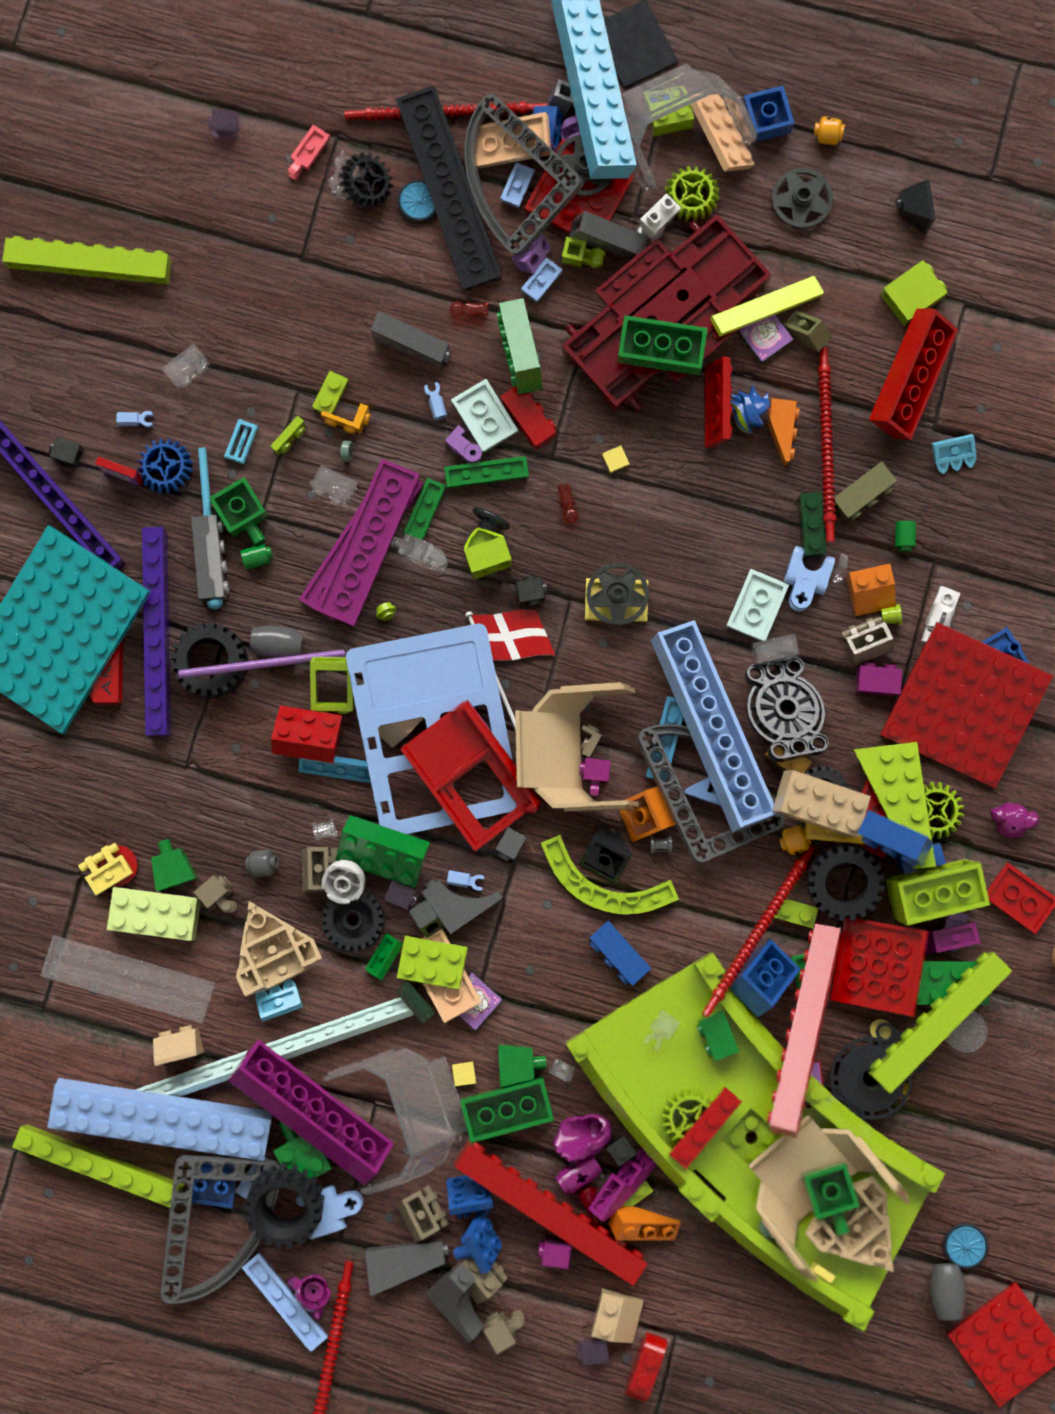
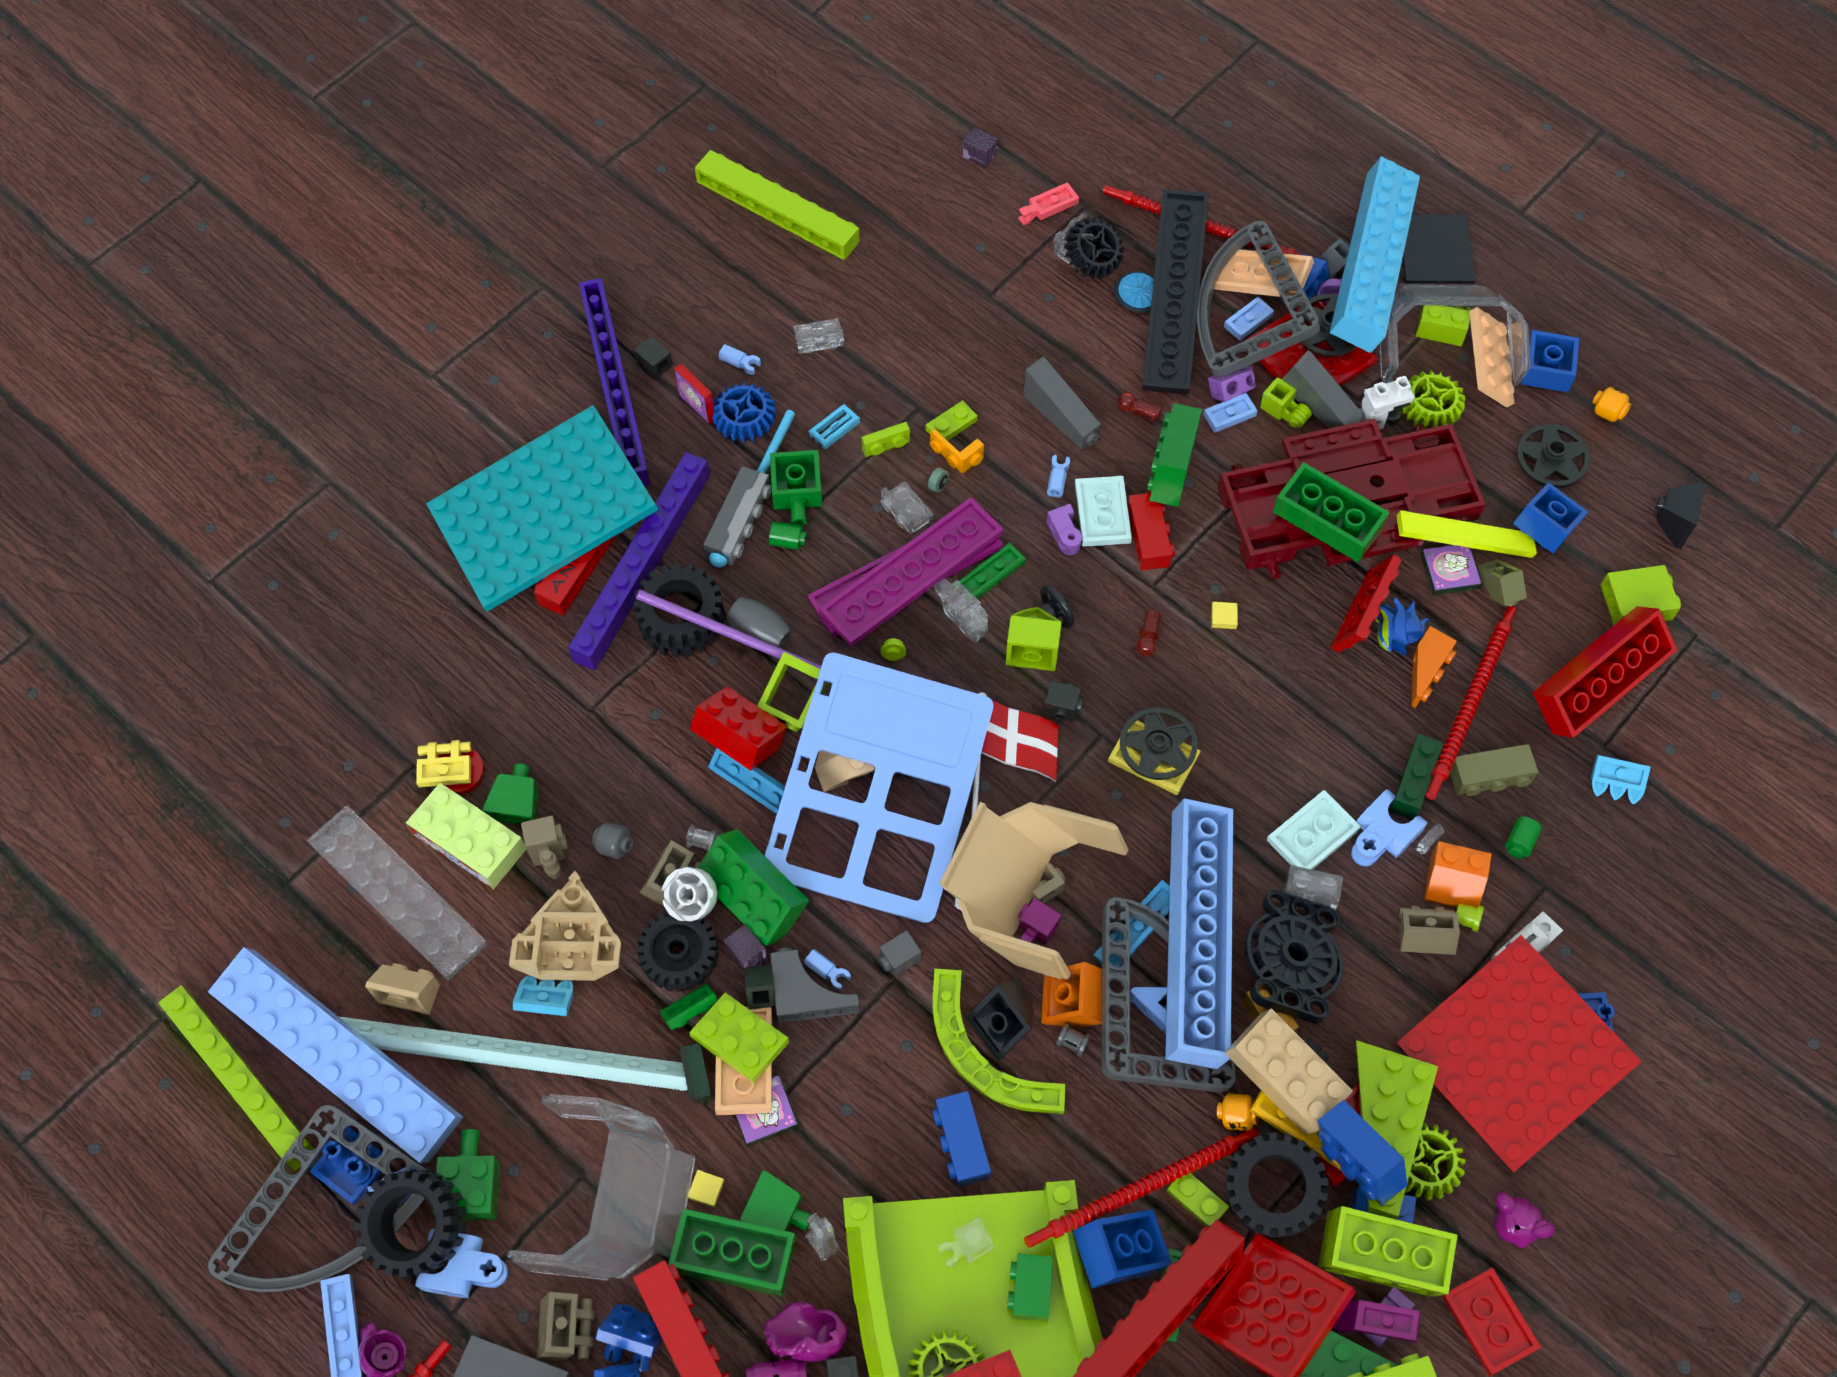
camera: 25 degrees right, 20 degrees down
(311, 1112) = (506, 1131): magenta brick -> none
(451, 750) = (889, 815): red piece -> none
(486, 472) = (1076, 564): green plate -> none
(823, 259) = (1550, 517): none -> blue brick
(878, 680) = (1421, 979): magenta brick -> none

